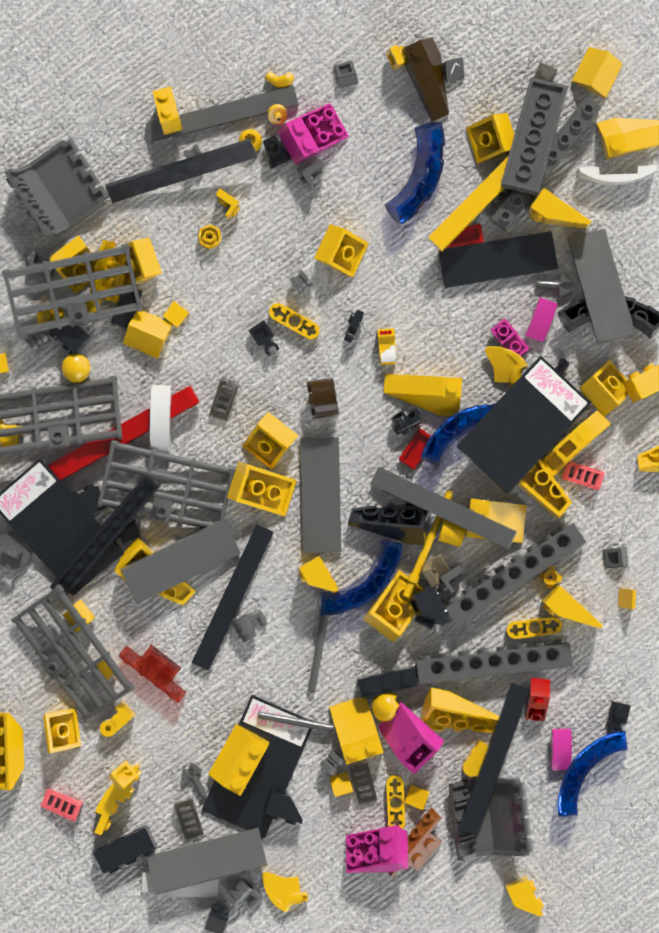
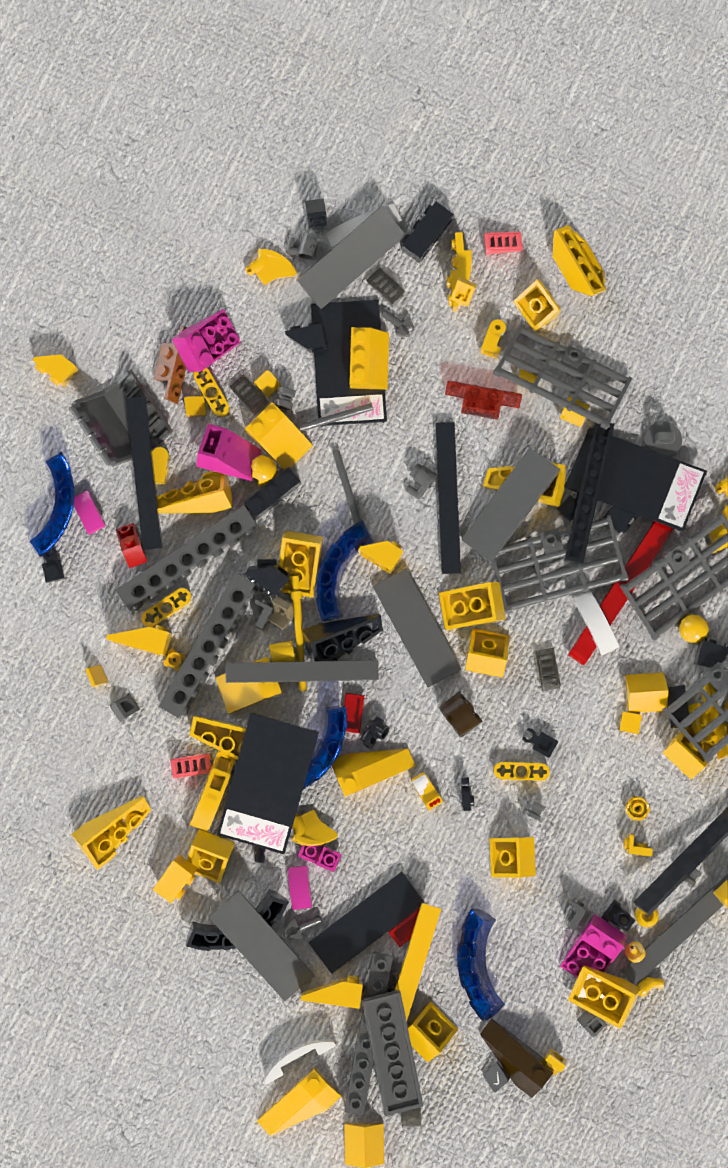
camera: 155 degrees right, 5 degrees down
(323, 90) = (604, 995): none -> yellow slope

